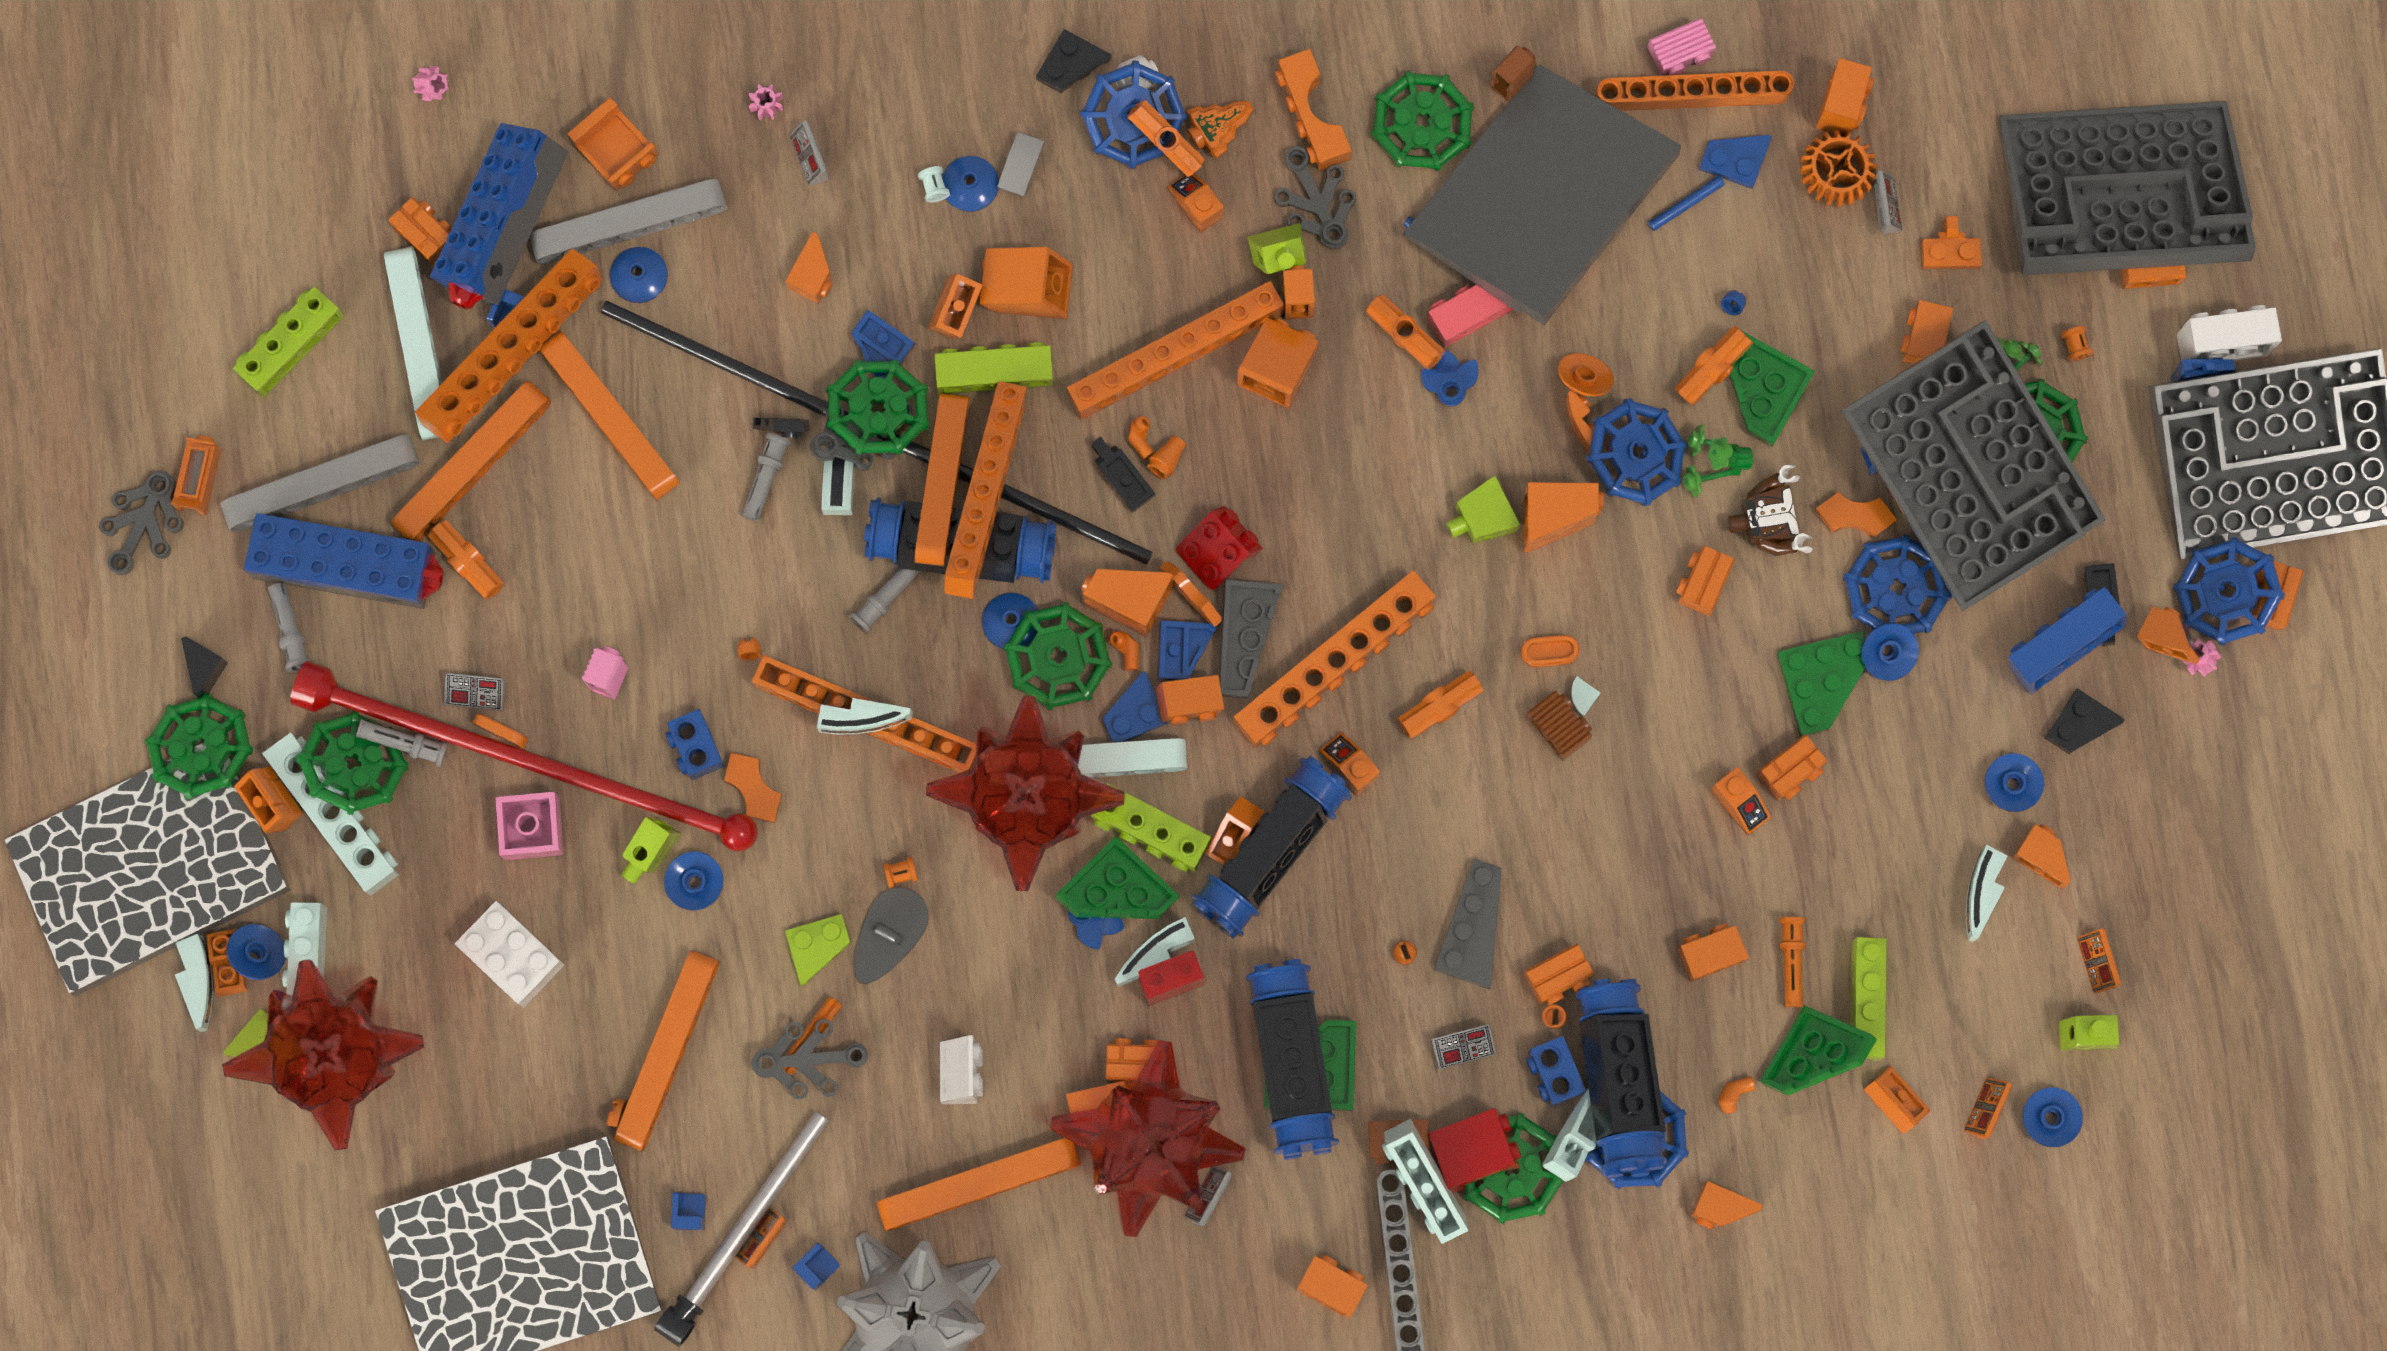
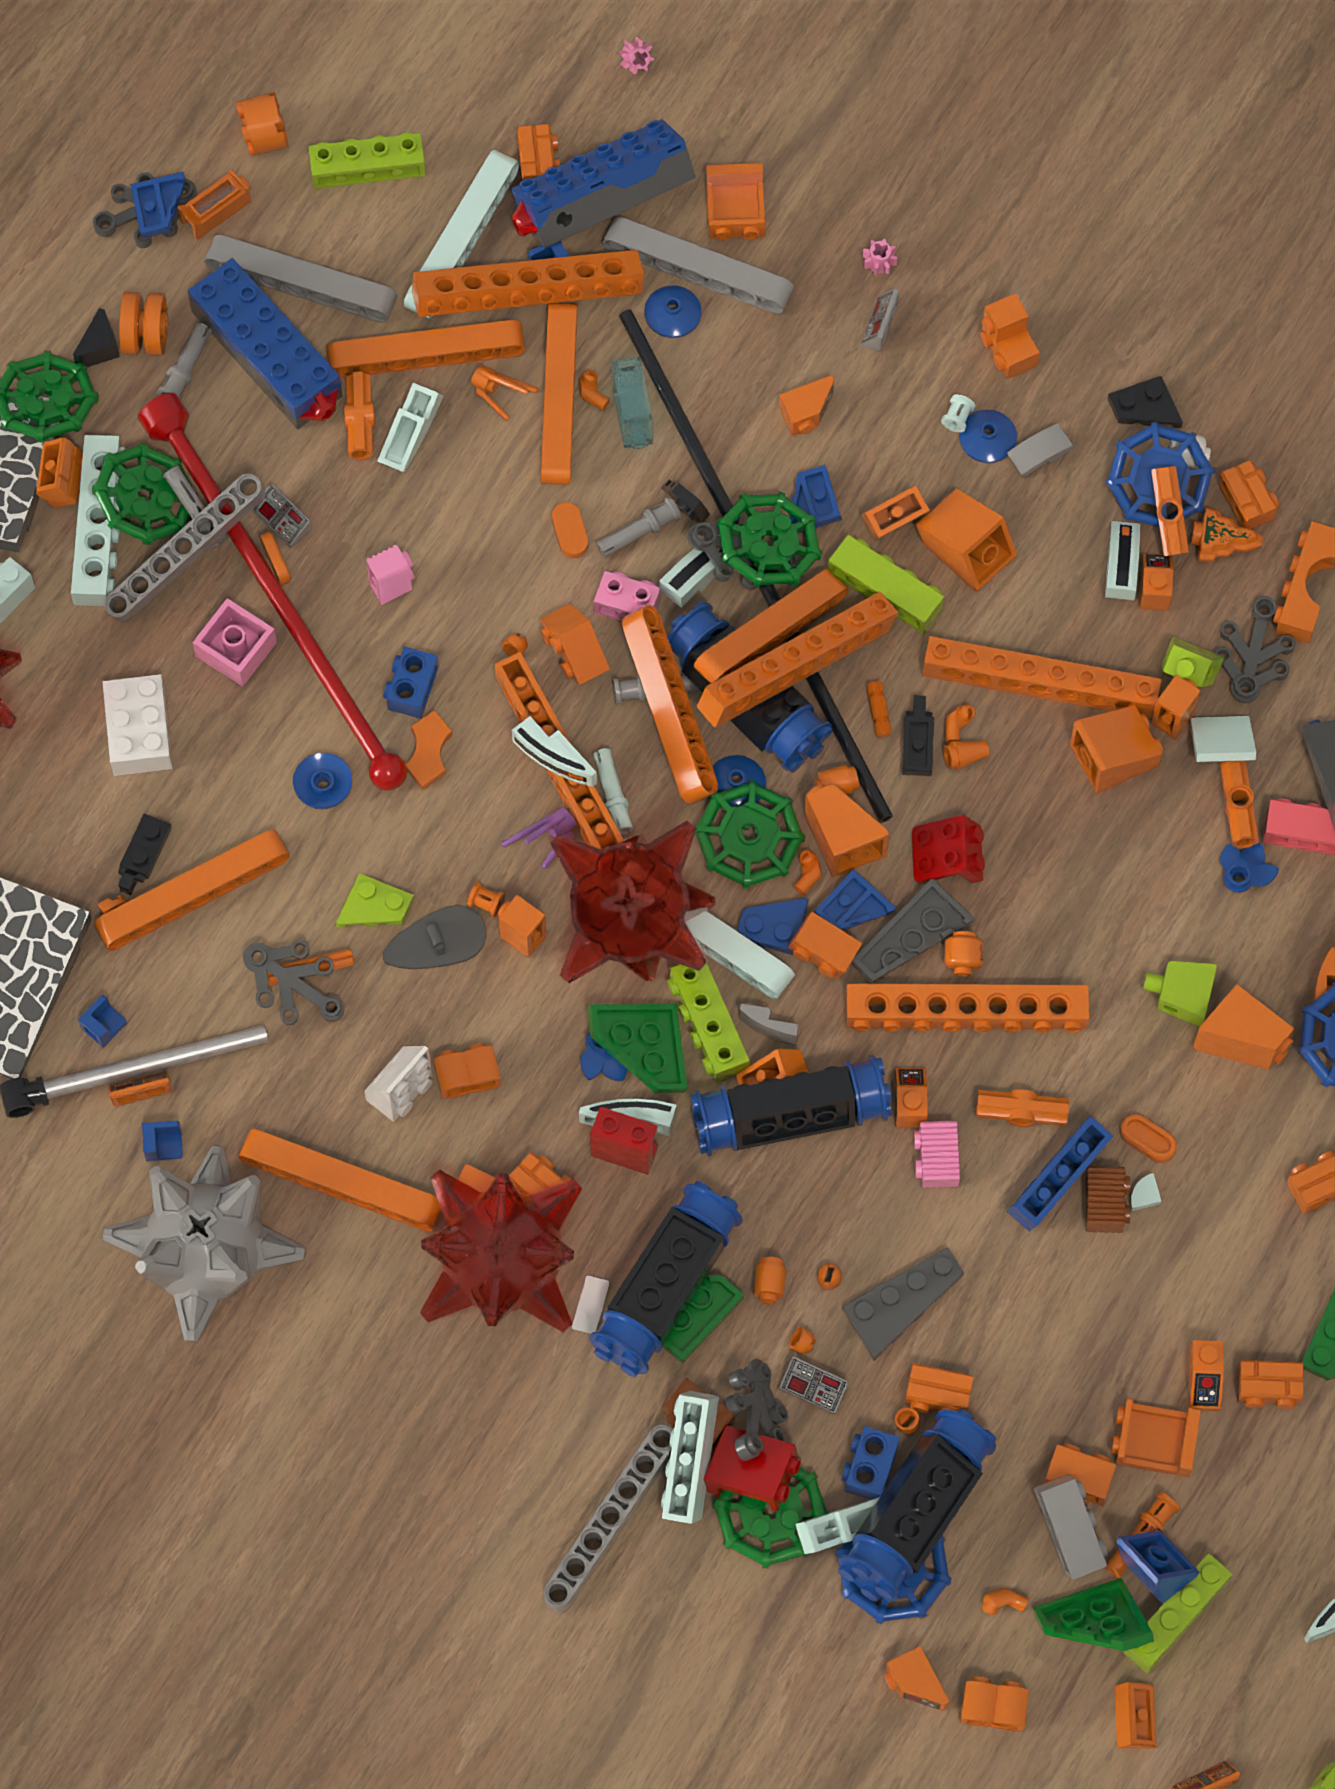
camera: 40 degrees right, 10 degrees down
(150, 512) = (157, 203): none -> blue wing
(179, 378) = (262, 124): none -> orange brick
(229, 623) = (143, 323): none -> orange wheel
(421, 796) = (180, 562): none -> light grey beam
(514, 537) = (410, 427): none -> light aqua slope
(543, 447) = (489, 380): none -> orange plant
(601, 1051) = (142, 852): none -> black hinge
(629, 393) = (589, 390): none -> orange arm
(657, 839) = (310, 728): lime torso -> none
(676, 379) = (632, 403): none -> clear light blue window
(711, 520) = (570, 530): none -> orange tile
(796, 611) = (575, 640): none -> orange brick
(805, 542) = (622, 596): none -> bright pink brick
(905, 766) = (555, 823): none -> medium lavender plant
(913, 603) = (670, 704): none -> orange beam
(916, 700) = (616, 802): none -> light aqua pin
(920, 90) = (1007, 336): none -> orange brick
(948, 872) = (522, 925): none -> orange brick
(1002, 1019) = (467, 1071): none -> orange brick
(1071, 474) = (879, 709): none -> orange axle
(1089, 559) = (842, 776): none -> orange brick
(1158, 204) = (1123, 560): none -> light aqua slope
(1190, 797) = (759, 1020): none -> light grey slope
(1192, 594) = (895, 868): orange tile -> none
(1210, 75) = (1248, 495): none -> orange brick
(1211, 1192) = (511, 1337): slope -> none
(1246, 1122) = (590, 1304): none -> white sticker
(1298, 619) = (963, 953): none -> orange head
(1333, 1286) = (545, 1480): orange brick -> none
(1352, 290) = (1222, 738): none -> light aqua tile
(1365, 993) = (769, 1280): none -> orange brick
(1408, 792) = (938, 1154): none -> bright pink brick
(1418, 1075) = (758, 1378): none -> dark grey plant
(1426, 1019) = (802, 1341): none -> orange hinge
(1512, 734) = (1059, 1173): none -> blue brick
(1742, 999) = (1071, 1526): none -> light grey brick
(1744, 878) = (1156, 1438): none -> orange panel
(1793, 1178) = (994, 1704): none -> orange brick
(1828, 975) = (1157, 1563): none -> blue slope

